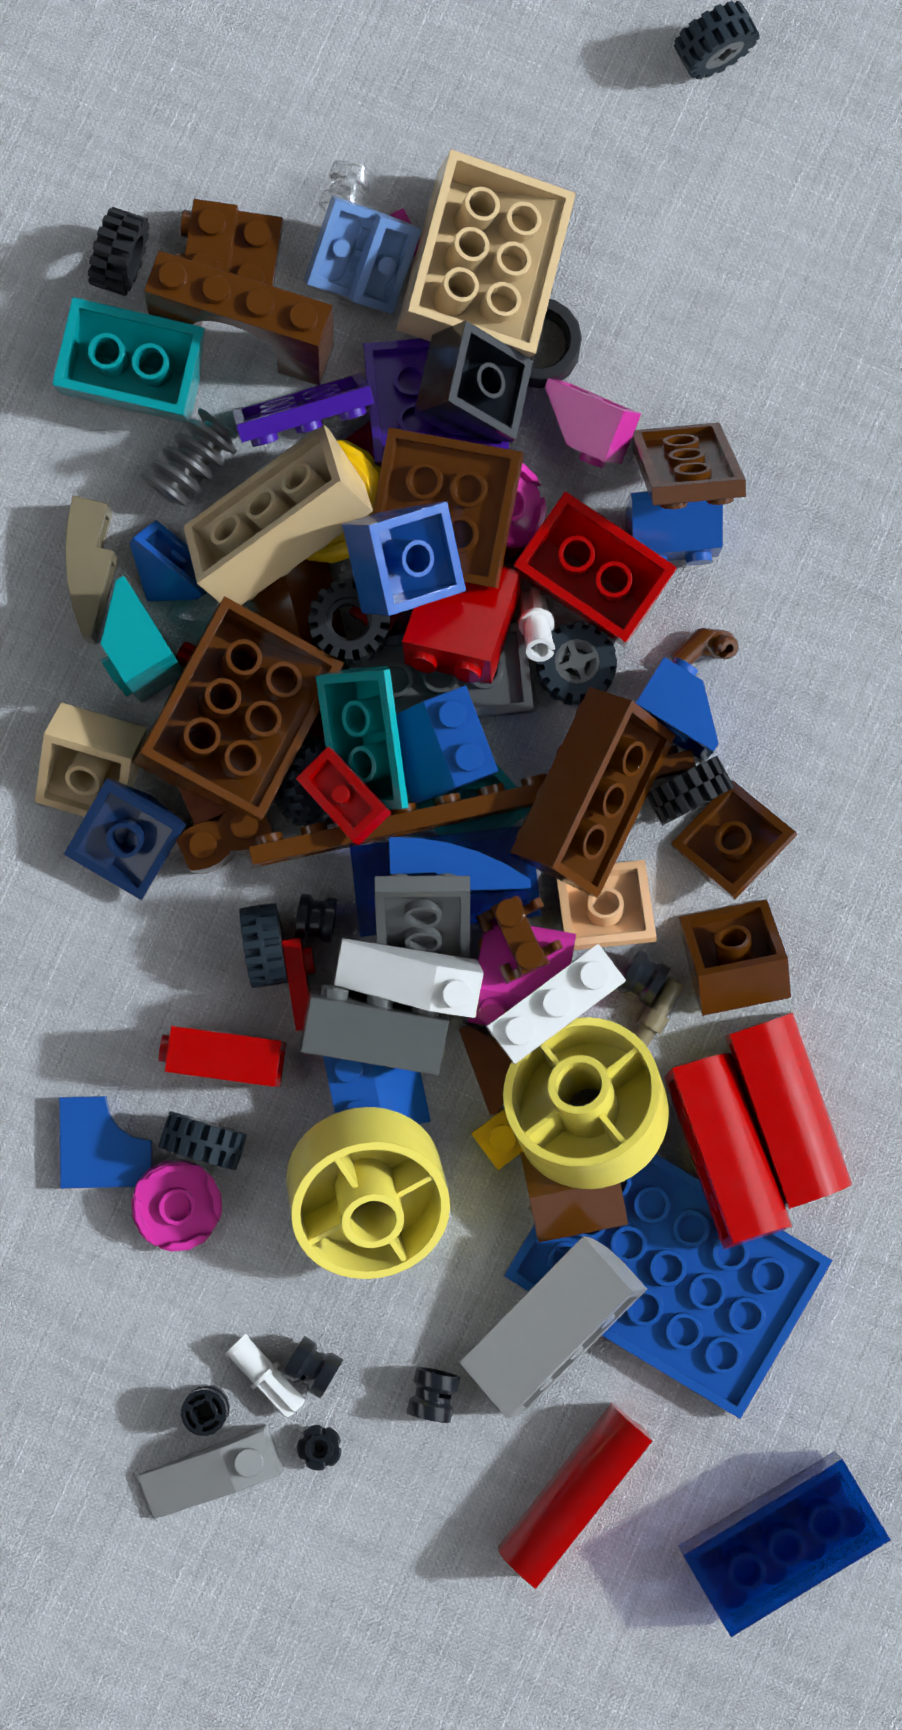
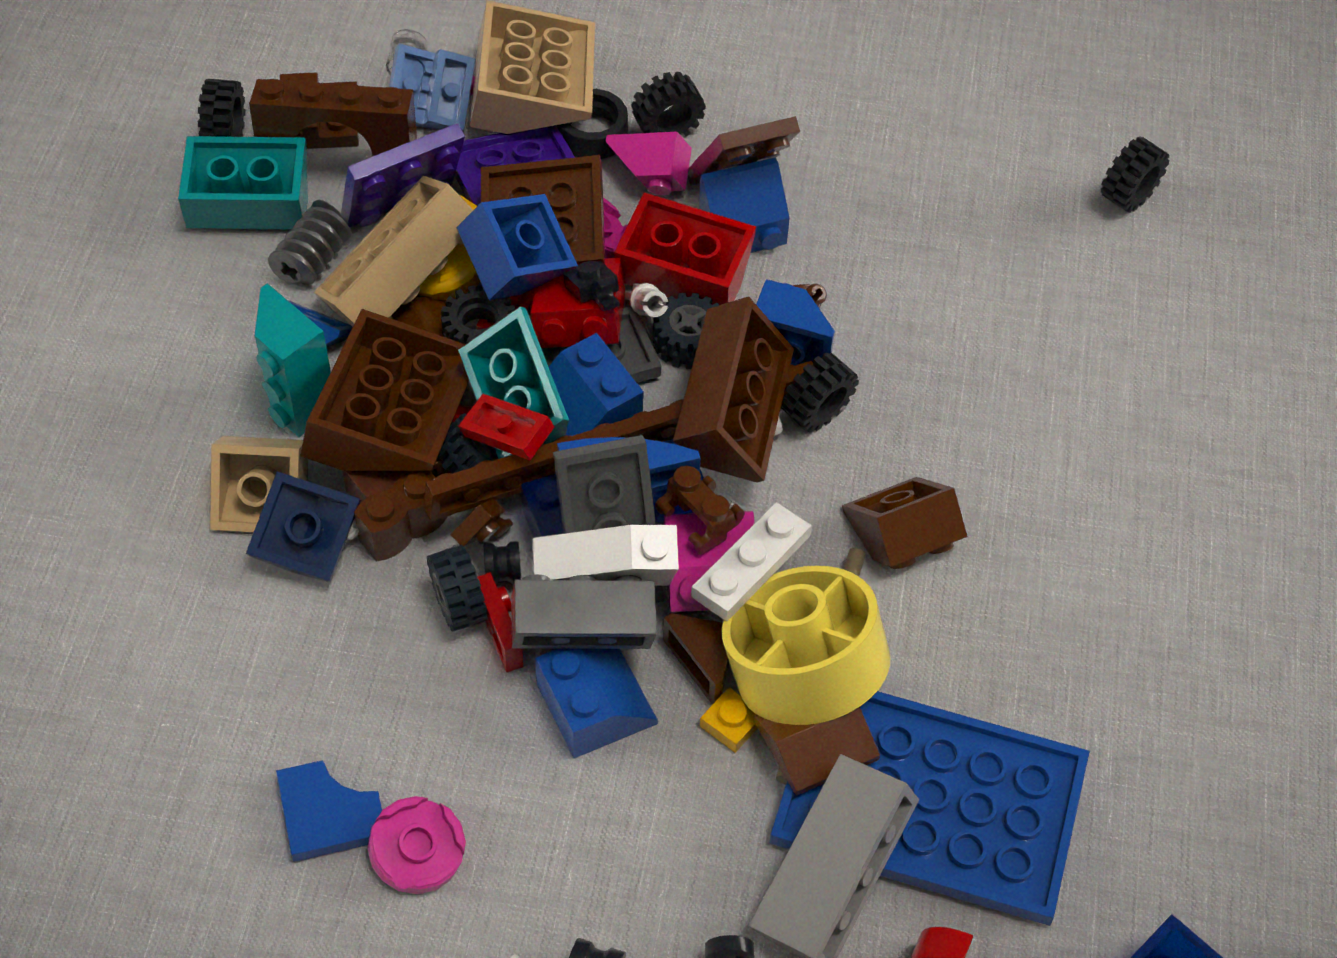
camera: 15 degrees left, 30 degrees down
(88, 564) = (233, 333): dark tan slope -> none
(202, 1140) = (432, 767): black wheel -> none
(223, 1056) = (437, 685): red brick -> none
(301, 879) = (482, 524): none -> reddish brown plate
(367, 1193) = (567, 774): light yellow piece -> none
(473, 384) = (542, 130): black slope -> none
(477, 621) = (593, 282): none -> black plate
(615, 918) = (784, 487): light nougat slope -> none
(629, 349) = (663, 93): none -> black tyre
(644, 978) = (825, 549): black wheel -> none
(727, 1150) = (954, 675): red brick -> none
(733, 840) = (870, 432): reddish brown slope -> none
(789, 1110) = (996, 637): red brick -> none

